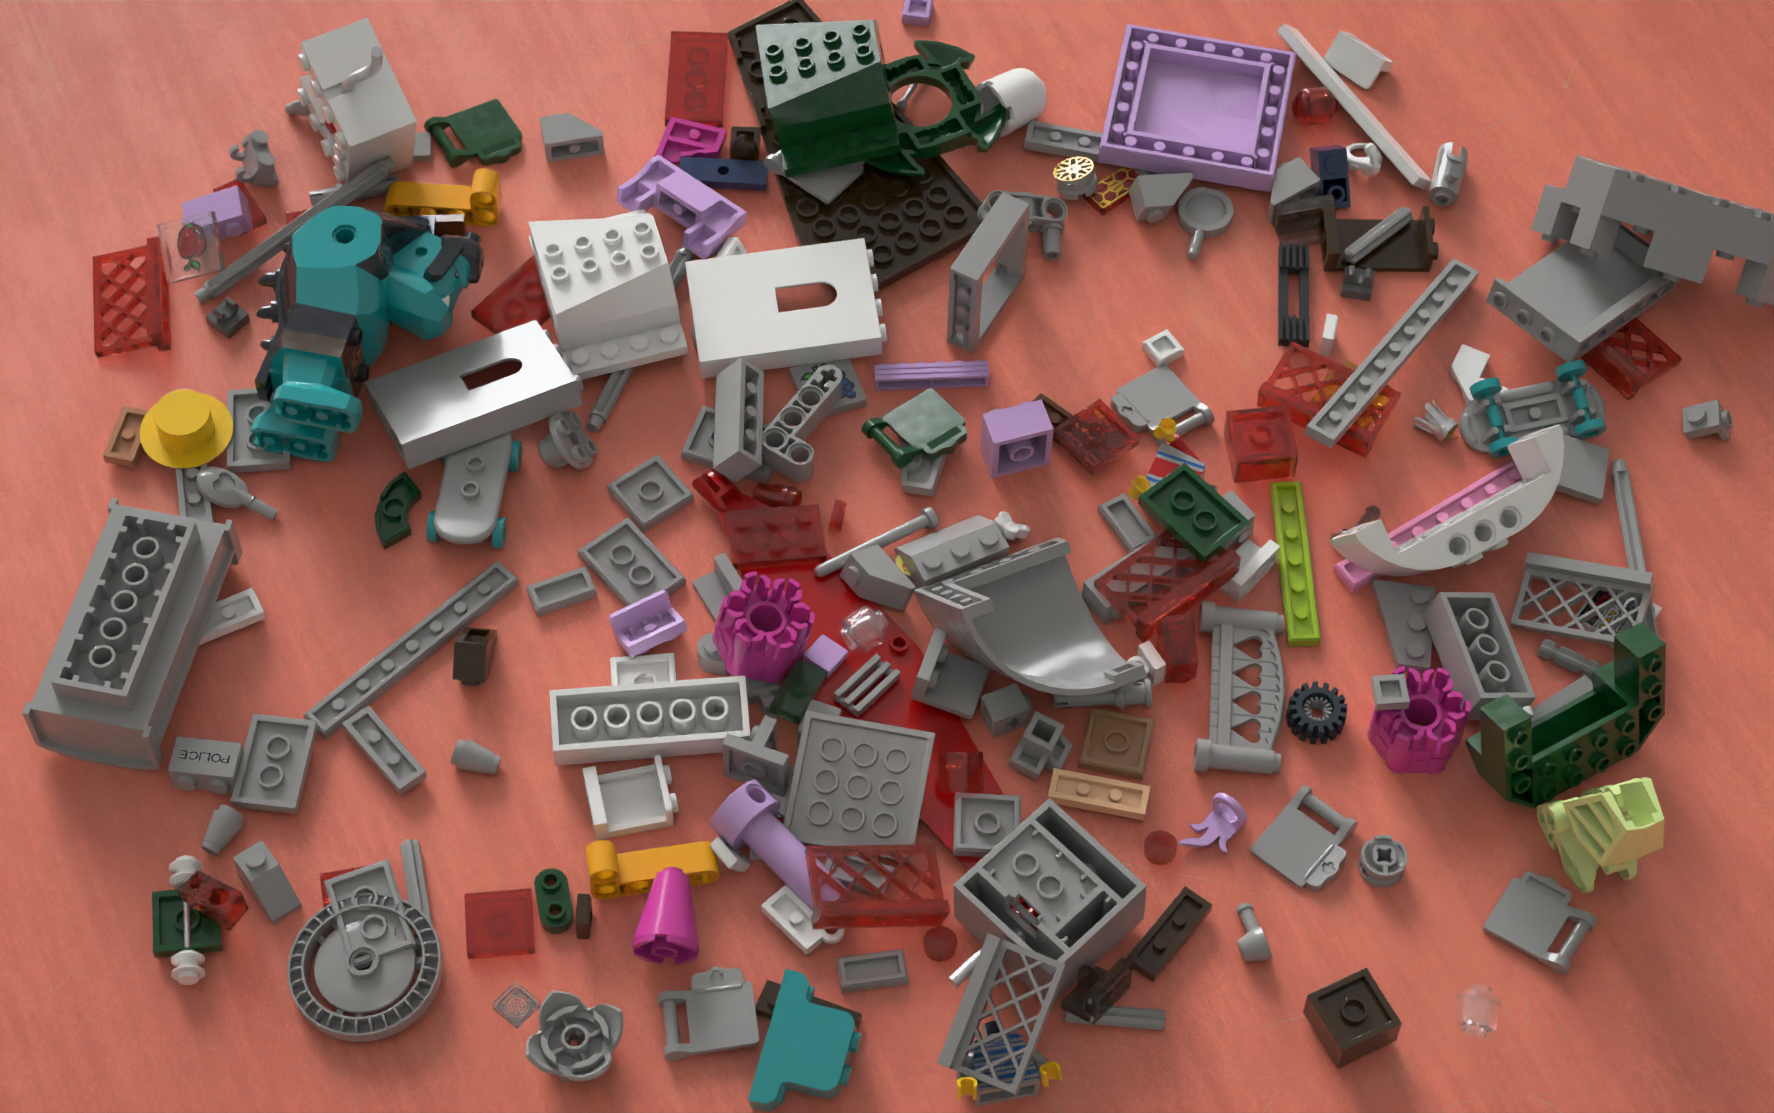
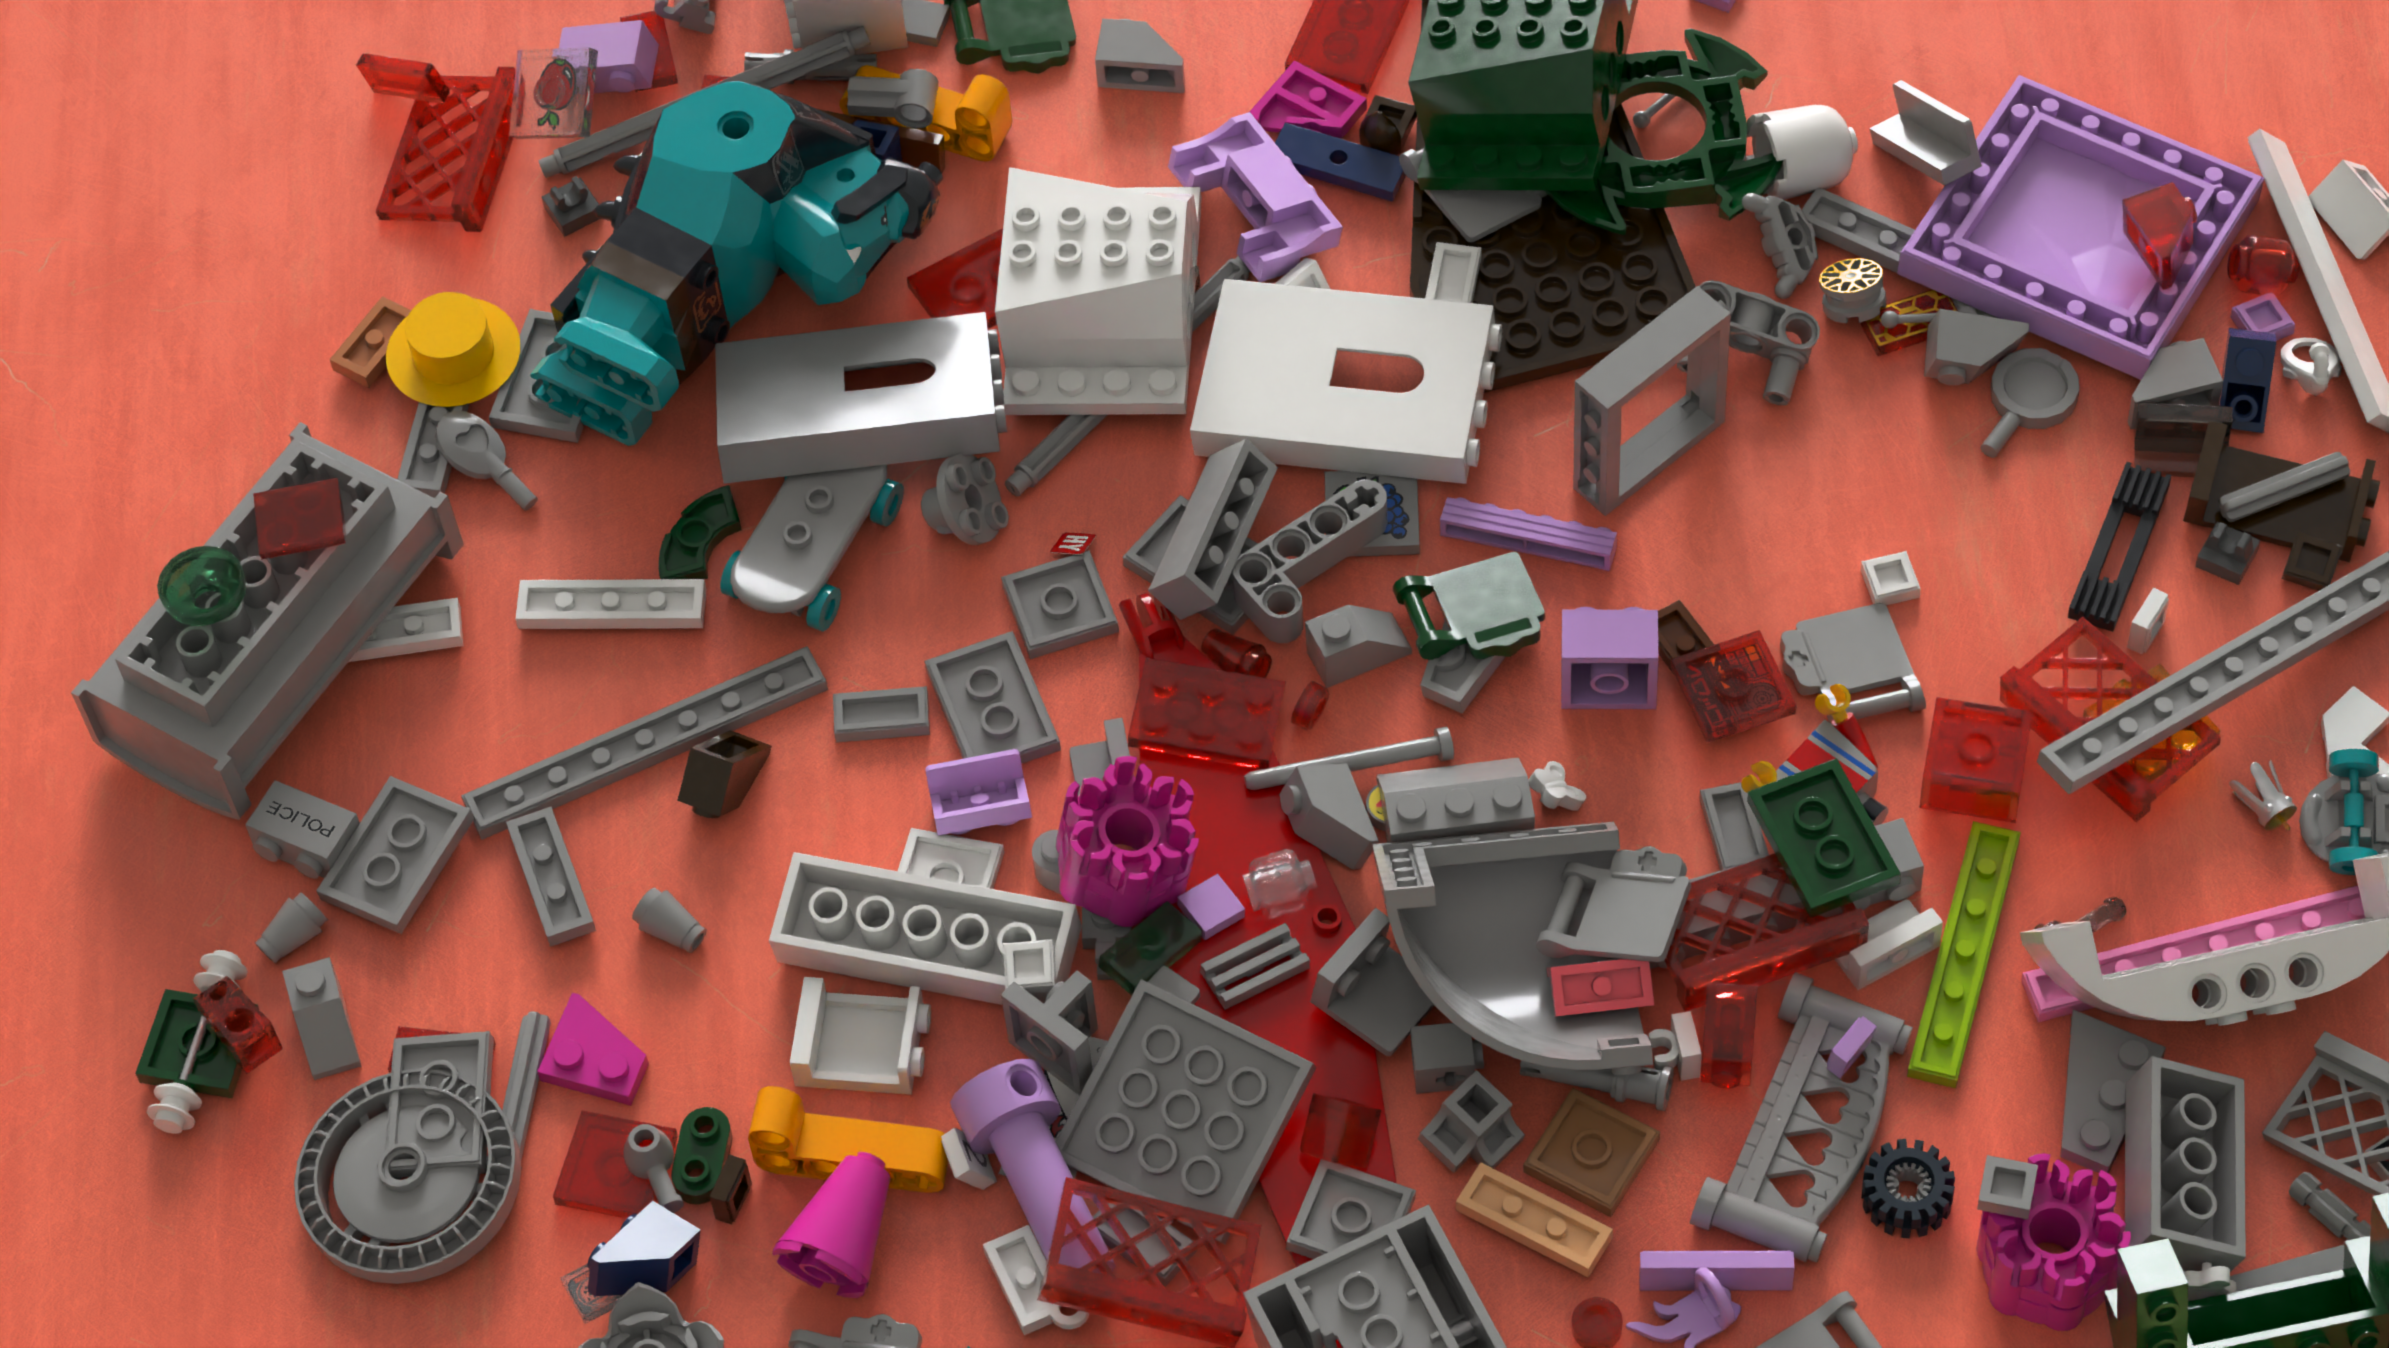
camera: 25 degrees right, 0 degrees up
(82, 260) = (403, 78): none -> clear red tile
(96, 607) = (198, 572): none -> clear green piece
(145, 558) = (299, 518): none -> clear red piece
(356, 566) = (611, 604): none -> white plate
(433, 195) = (906, 98): none -> light grey piece
(456, 857) = (592, 1055): none -> dark pink wing
(526, 914) = (653, 1163): none -> light grey bar
(545, 969) = (648, 1249): none -> slope
(644, 452) = (1073, 543): none -> red sticker
(731, 720) = (1030, 965): none -> white tile
(825, 224) = (1454, 273): none -> white tile
(848, 470) = (1353, 642): none -> light grey slope
(1022, 156) = (1786, 238): none -> light grey piece
(1088, 72) = (1928, 136): none -> light grey panel
(1088, 639) = (1600, 986): none -> coral panel
(1090, 586) = (1629, 910): none -> light grey piece
(1105, 190) = (1890, 319): none -> light grey hinge
(1240, 788) = (1732, 1268): none -> lavender tile
(1250, 97) = (2160, 230): none -> clear red slope
(1255, 635) = (1850, 1046): none -> lavender tile
(1324, 135) = (2263, 315): none -> lavender tile
(1409, 276) = (2312, 561): none -> dark brown tile

